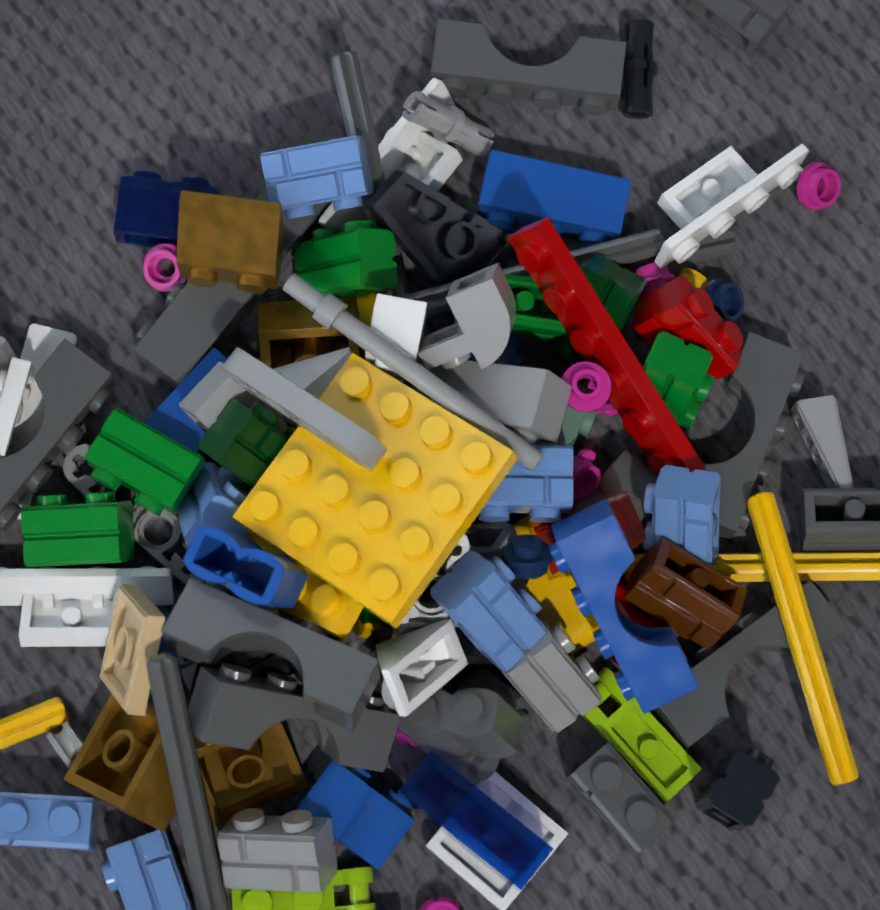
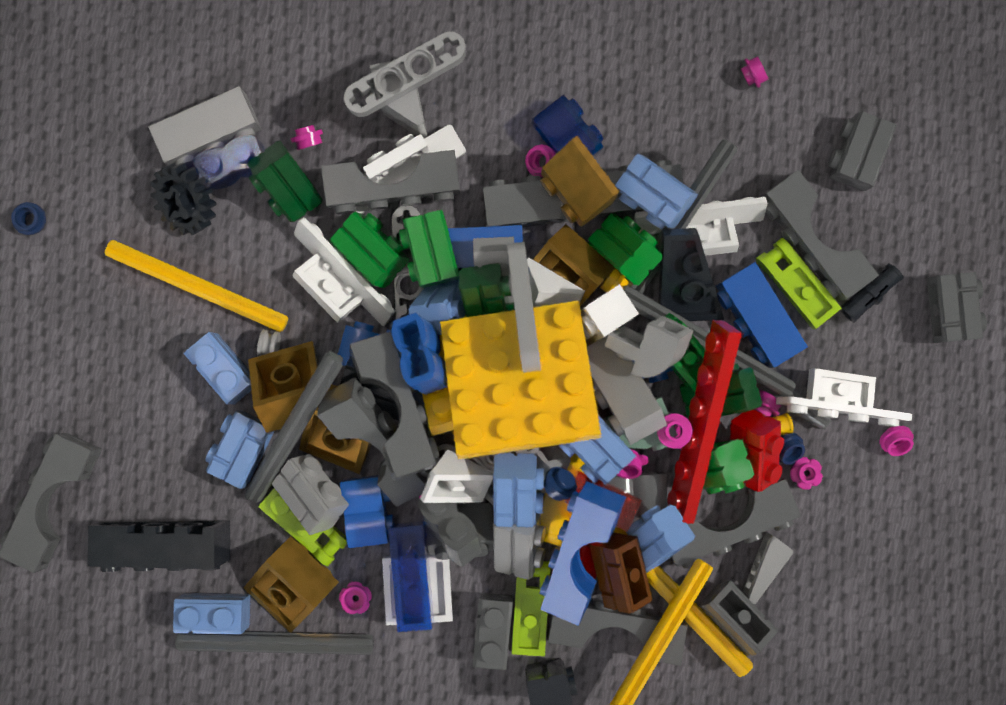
camera: 55 degrees right, 10 degrees up
(131, 640) = (335, 333): tan tile -> none
(332, 313) = (586, 272): light grey bar -> none
(448, 124) = (747, 227): light grey pin -> none
(558, 131) = (799, 284): none -> lime plate
(765, 321) = (797, 473): none -> dark pink plate

